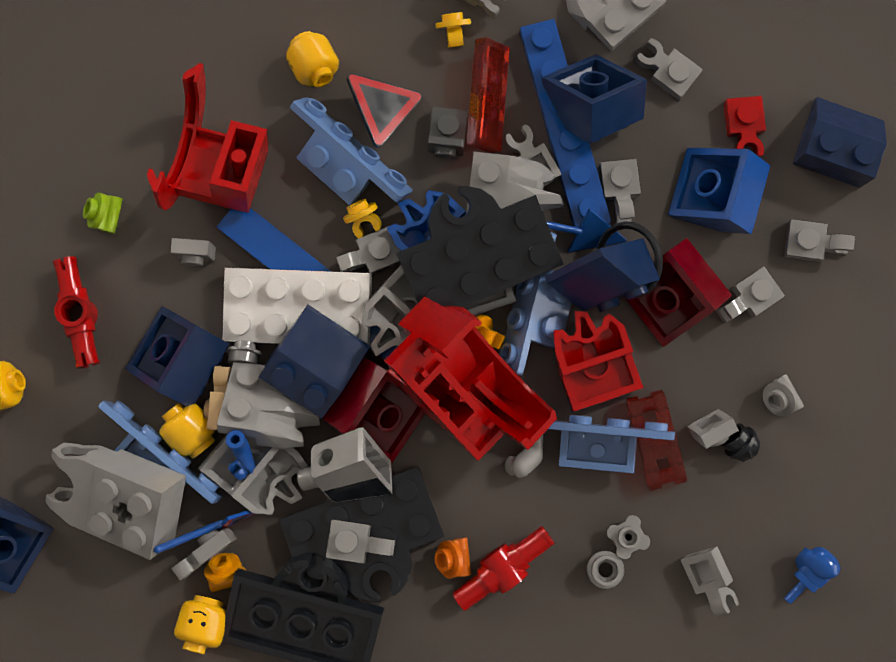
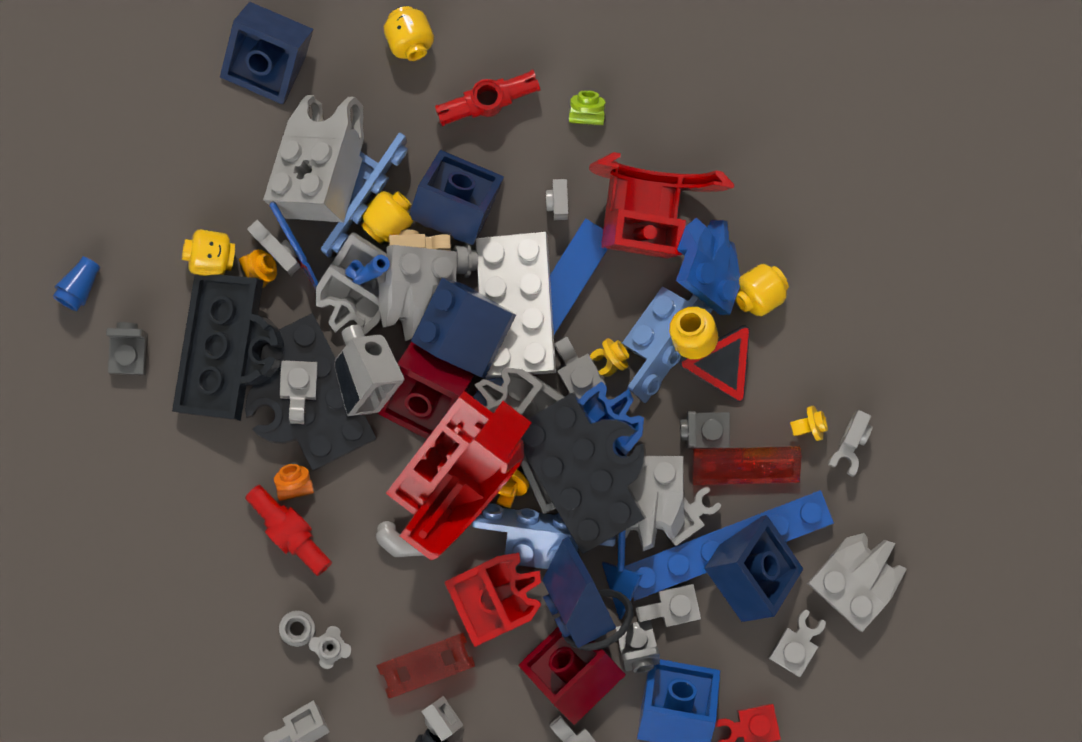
camera: 85 degrees right, 0 degrees up
(280, 102) = (710, 264): none -> blue plate
(348, 124) = (693, 332): none -> yellow head
(604, 446) = (413, 612): medium blue bracket -> none
(661, 220) = (639, 647): none -> dark grey bracket

